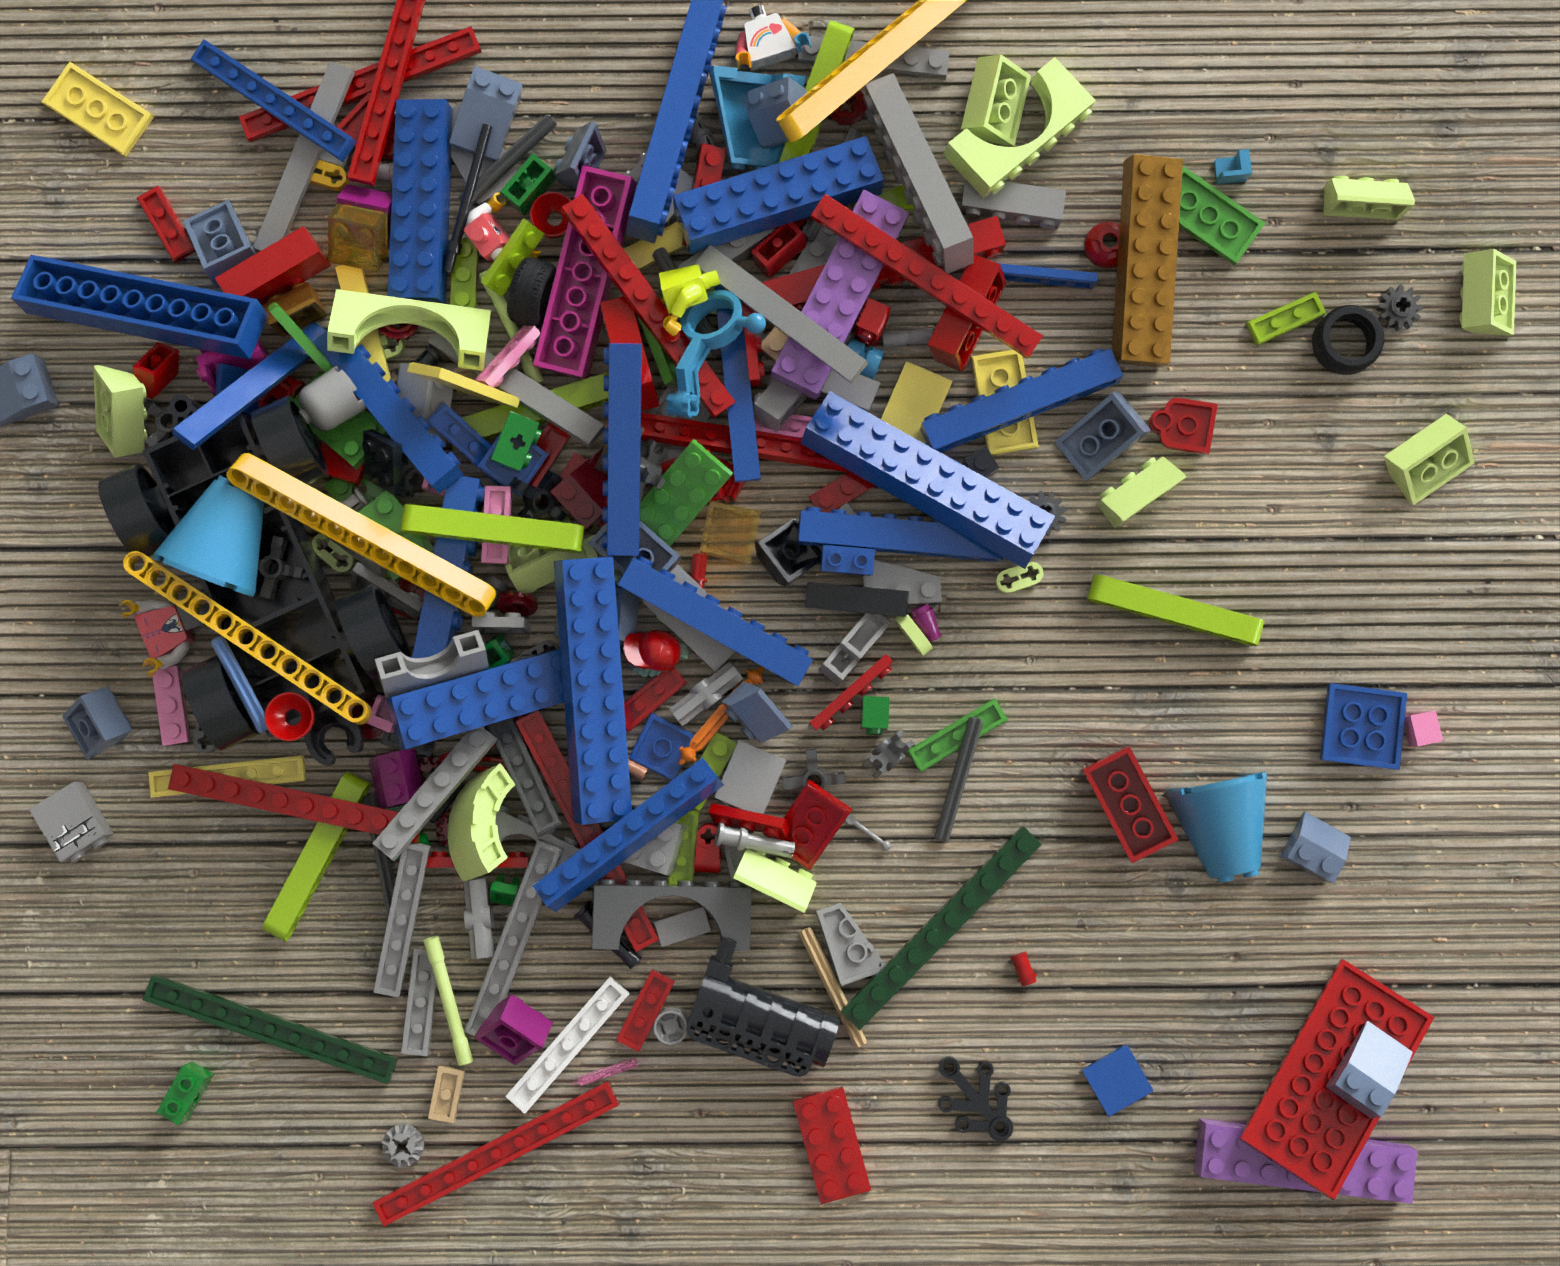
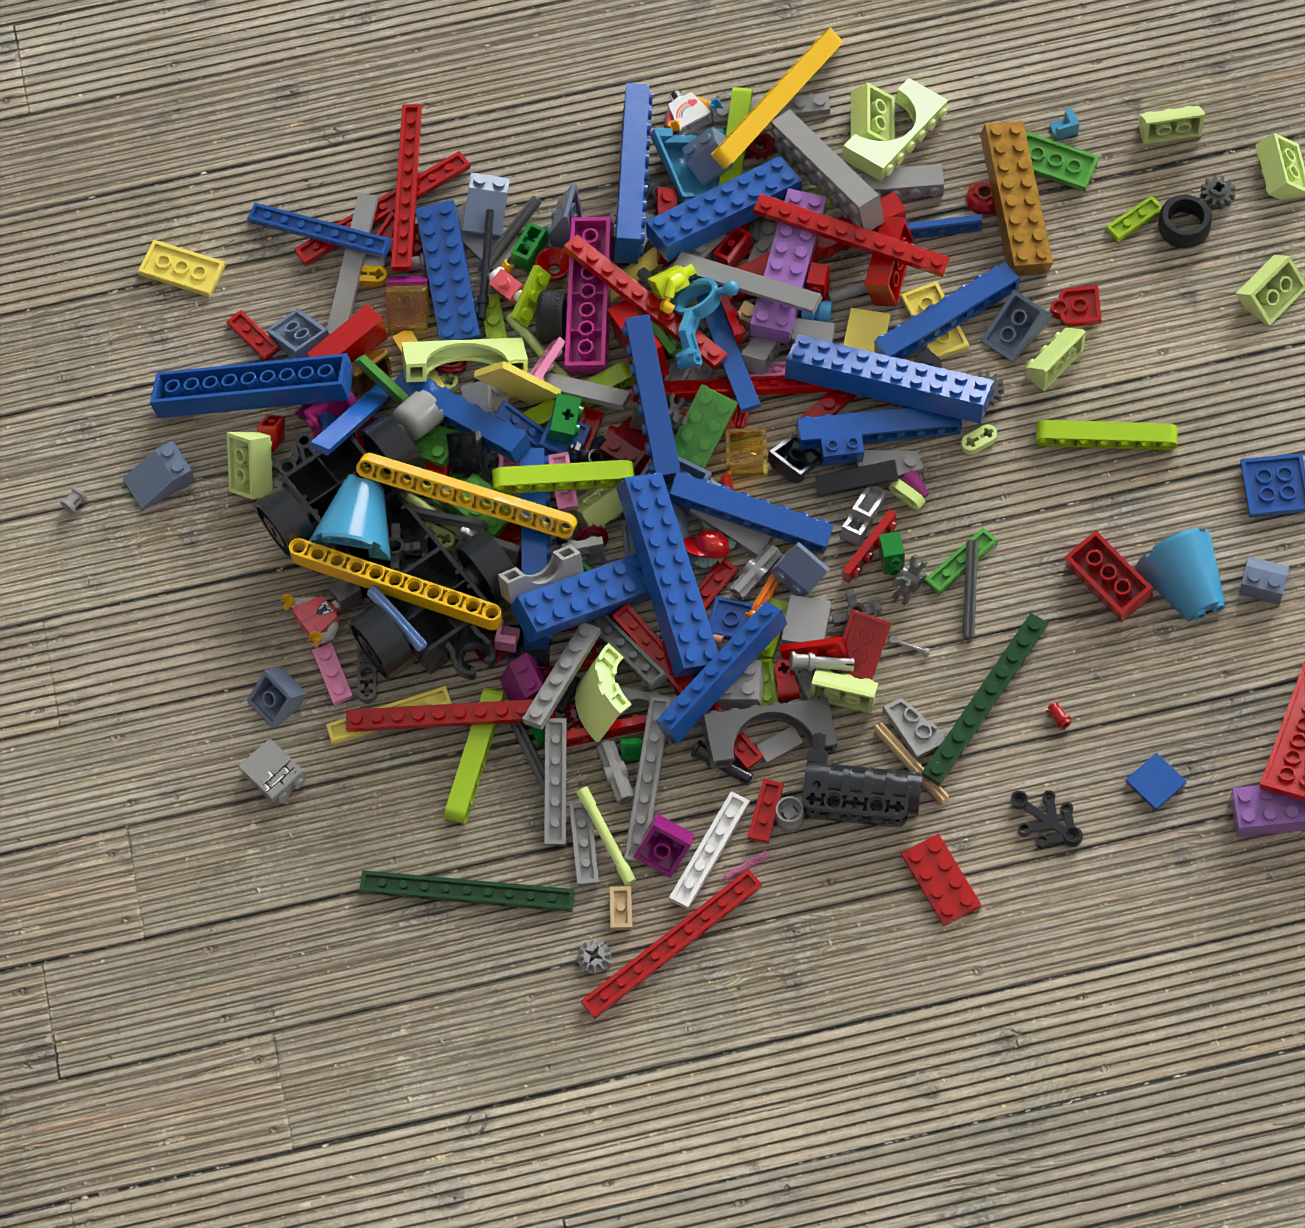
camera: 10 degrees left, 20 degrees down
(185, 1093) = (409, 951): green brick -> none
(277, 712) = (440, 622): red piece -> none

